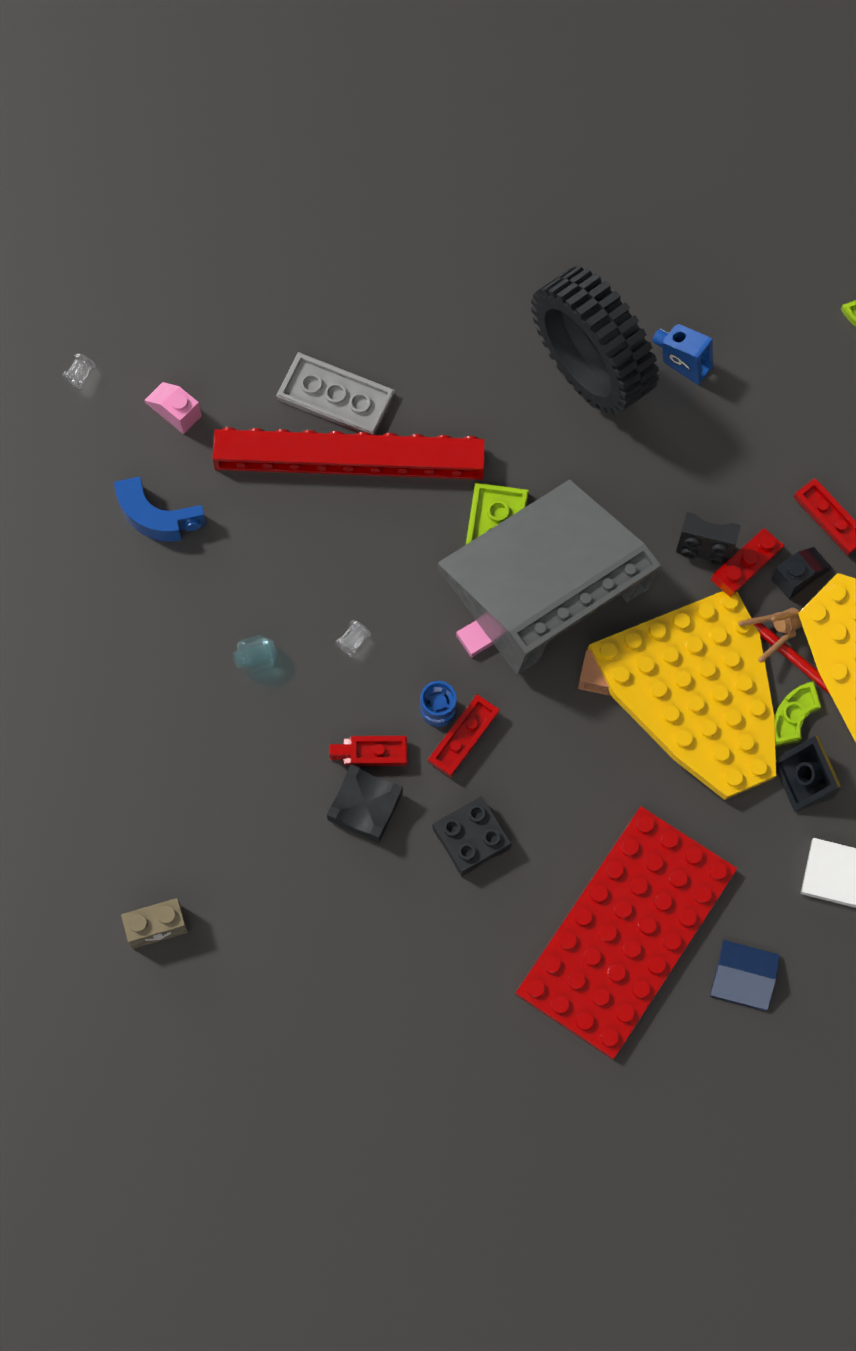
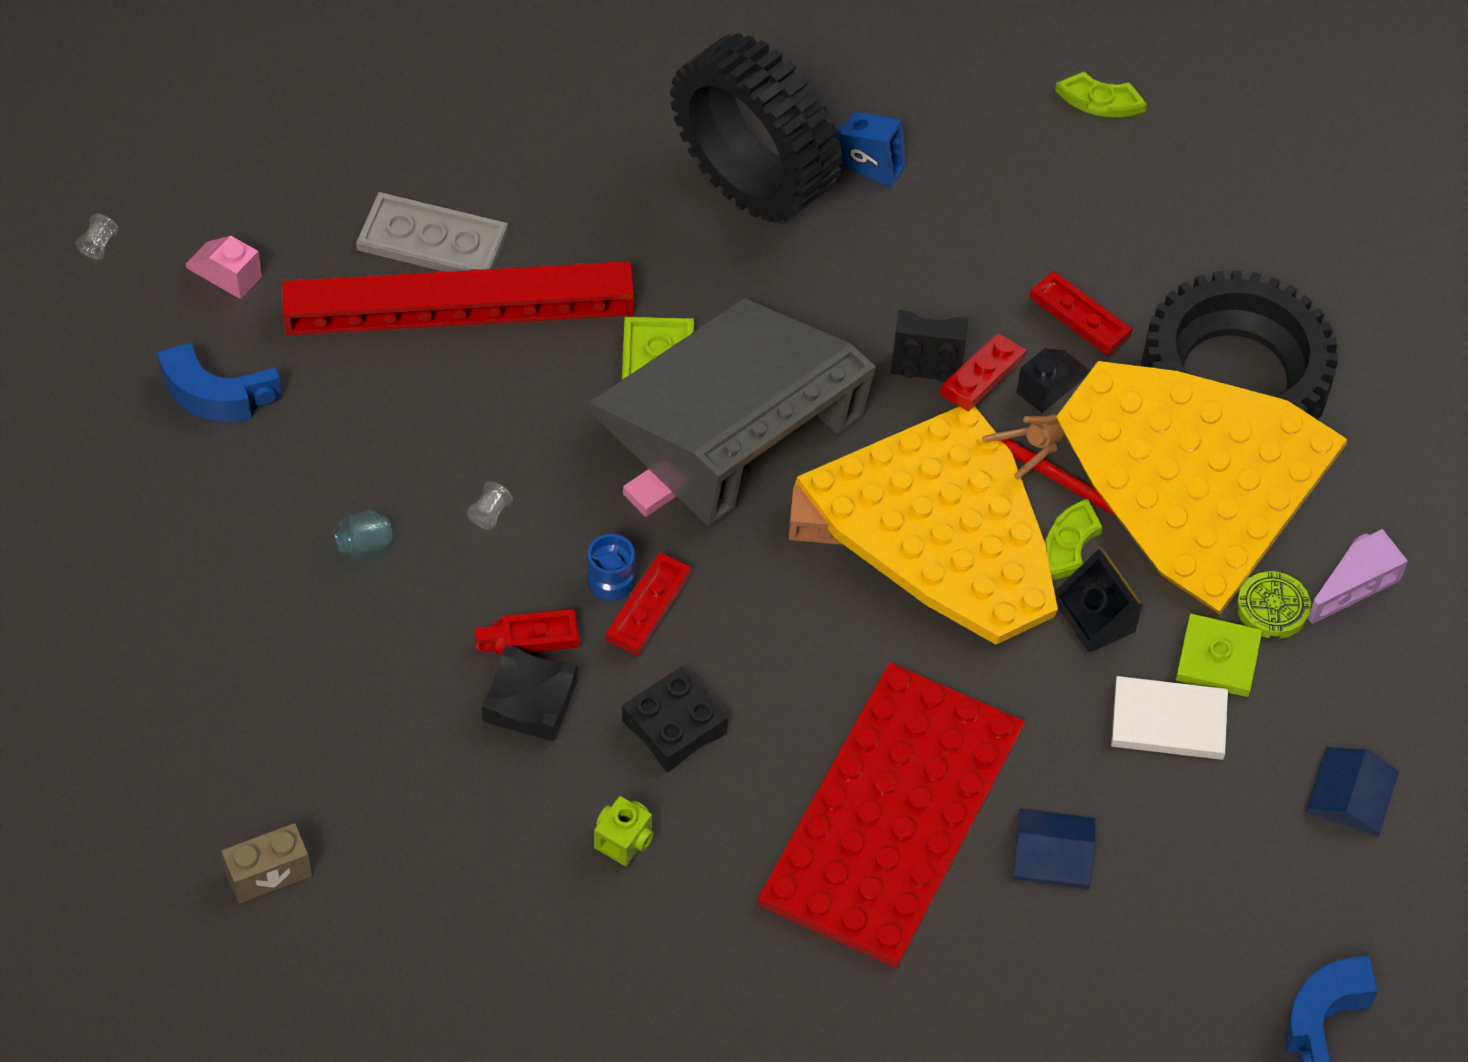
camera: 10 degrees left, 15 degrees down
(420, 937) = (623, 830): none -> lime brick

